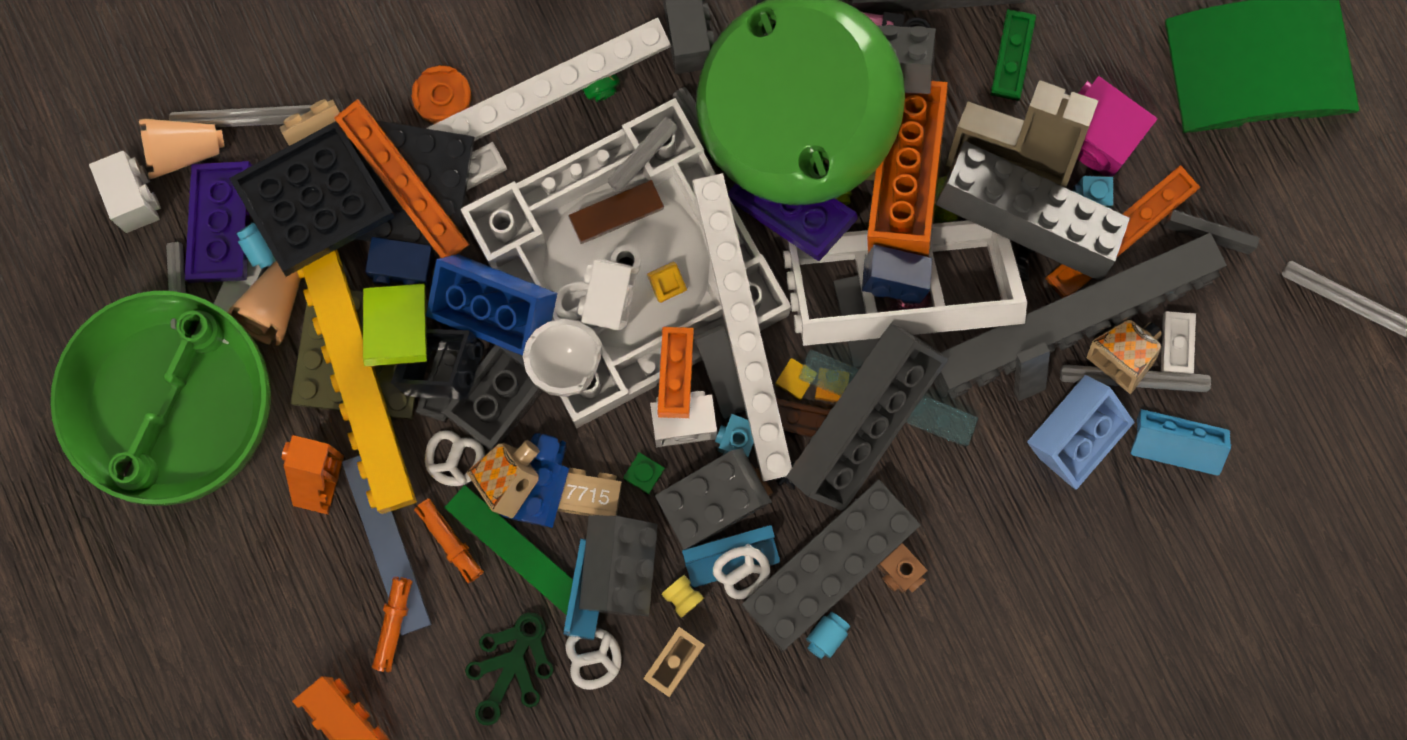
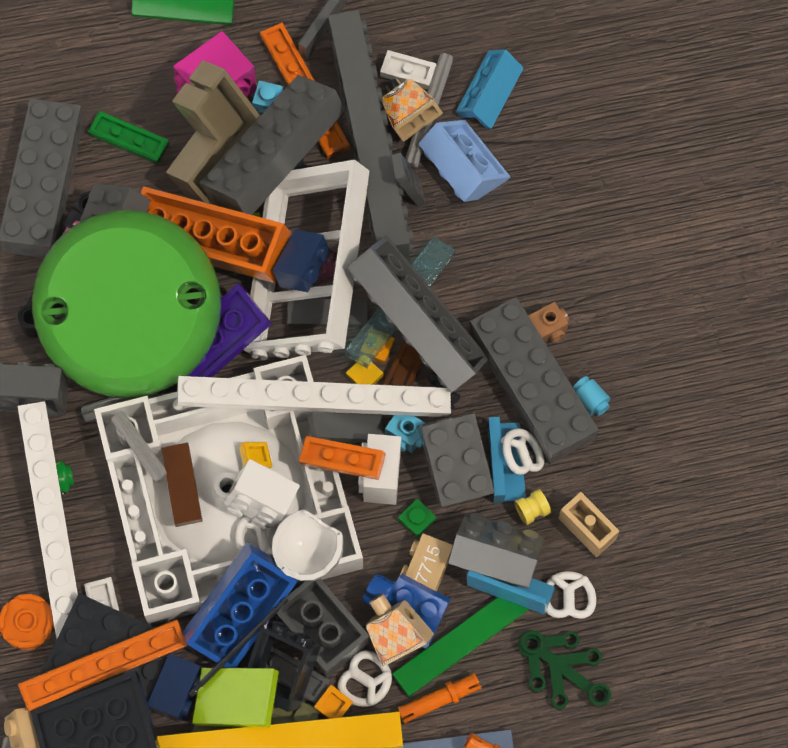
camera: 75 degrees left, 10 degrees down
(417, 430) = (333, 703): none -> light orange plate
(446, 313) = (238, 647): none -> black piece

